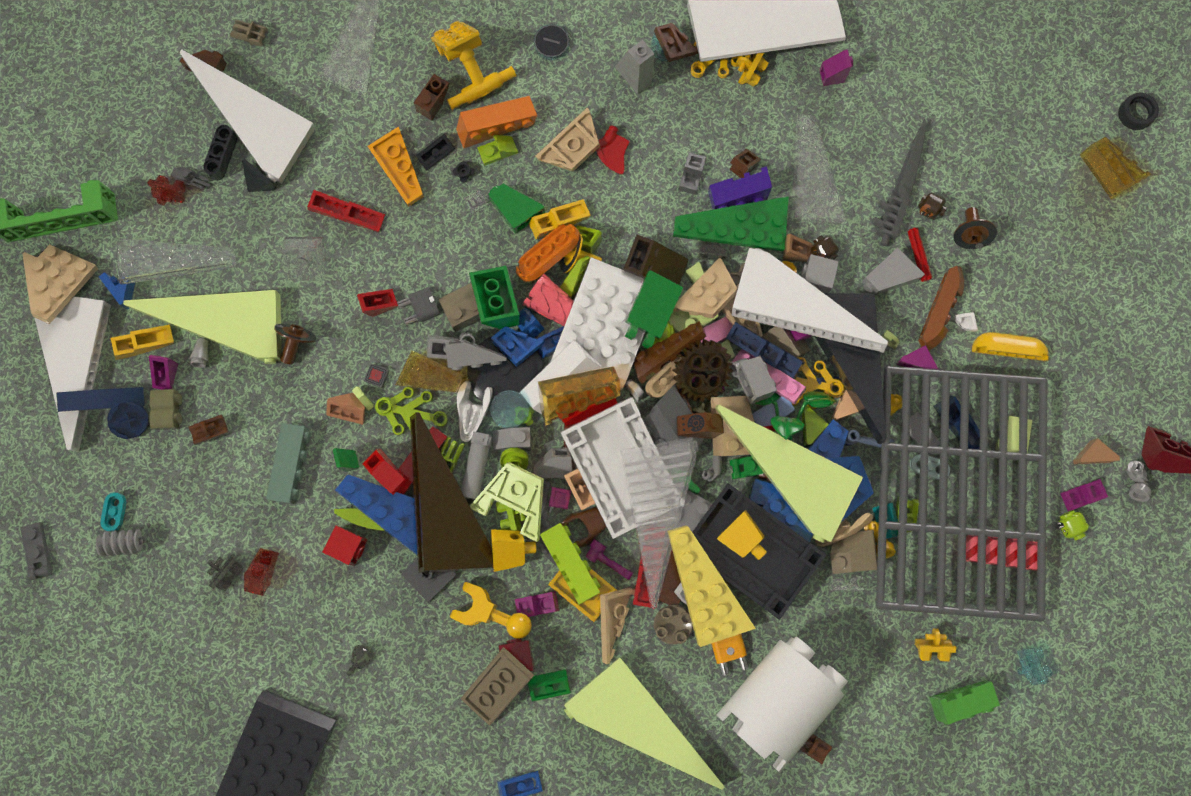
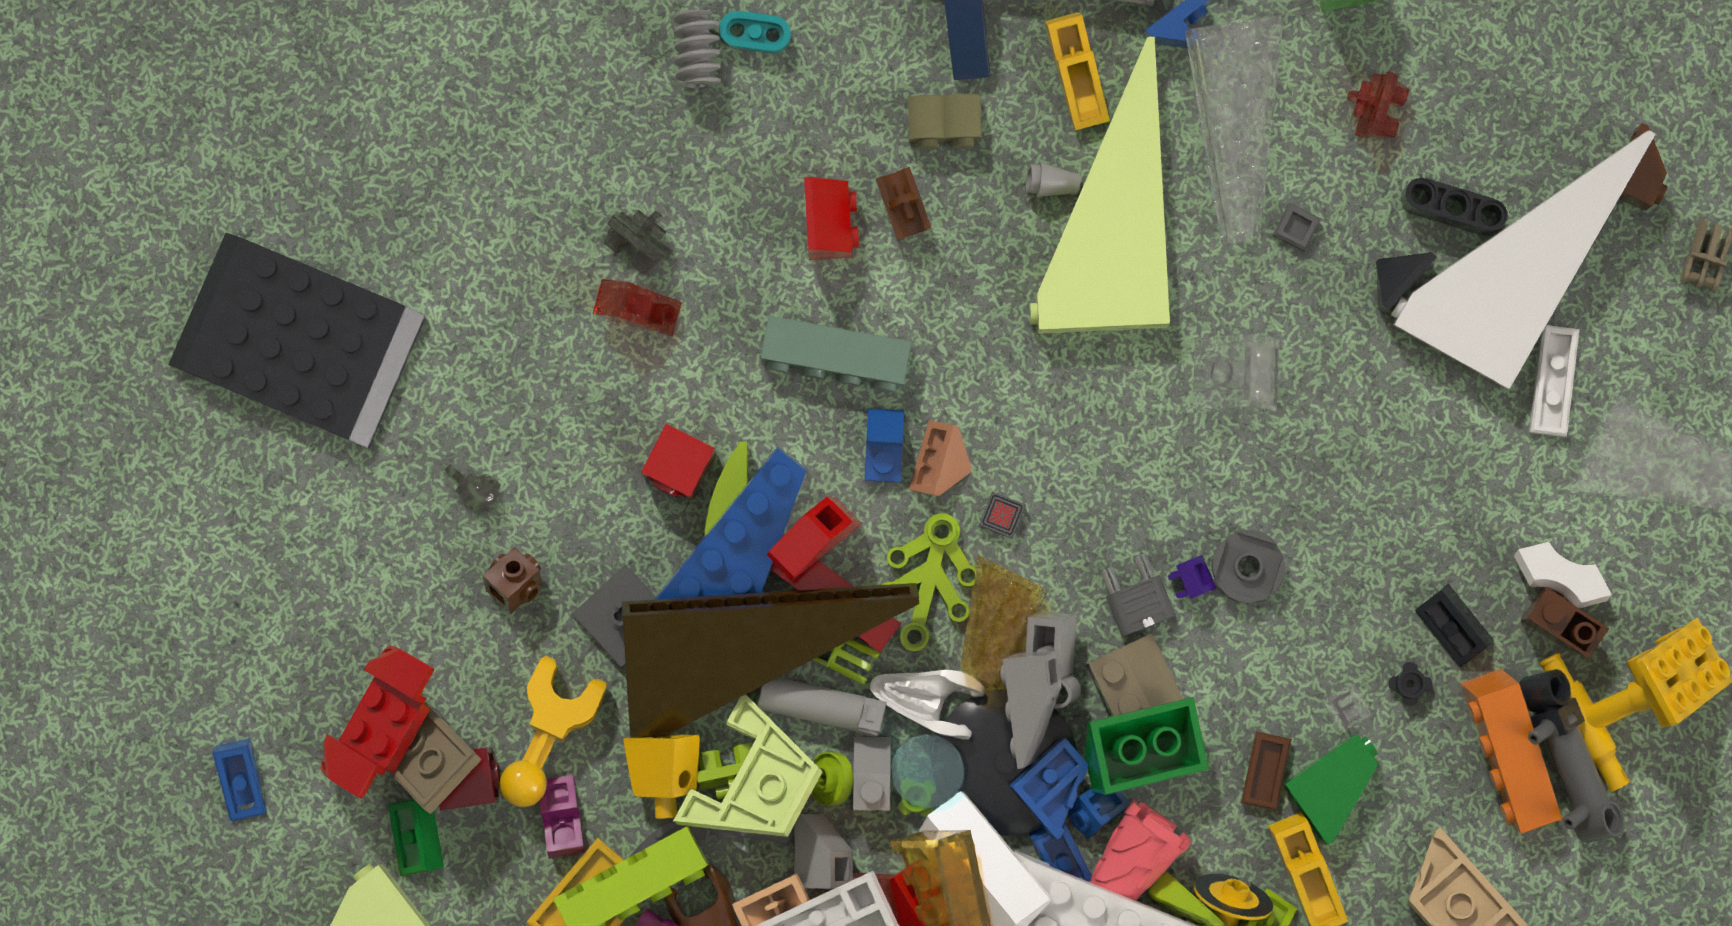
camera: 90 degrees right, 5 degrees up
(127, 419) = (926, 52): dark blue tile -> none
(162, 372) = (1014, 112): magenta slope -> none
(189, 177) = (1406, 144): dark grey piece -> none
(215, 469) = (828, 218): none -> red slope
(229, 230) = (1296, 227): none -> dark grey tile
(294, 335) = (1079, 361): reddish brown piece -> none
(312, 105) = (1554, 381): none -> white tile
(339, 437) = (884, 445): none -> blue slope
(345, 211) = (1331, 452): red slope -> none
(345, 459) = (839, 462): green slope -> none
(363, 398) = (958, 490): yellowish green tile -> none
(377, 302) = (1144, 518): red slope -> none
(396, 163) = (1432, 549): light orange wing -> none
(405, 105) = (1546, 568): none -> white tile
(408, 635) = (513, 579): none -> reddish brown brick
(409, 276) = (1195, 578): none -> dark purple tile
(414, 249) = (1257, 585): none -> dark grey plate
(480, 96) = (1558, 724): none -> dark grey piece
(485, 705) = (381, 723): none -> red piece
(497, 150) = (1454, 752): lime slope -> none
(508, 240) = (1266, 770): none -> reddish brown tile
(547, 252) = (1235, 850): orange tile -> none
(551, 42) = (1685, 864): black tile -> none
(559, 498) = (758, 863): dark pink tile -> none

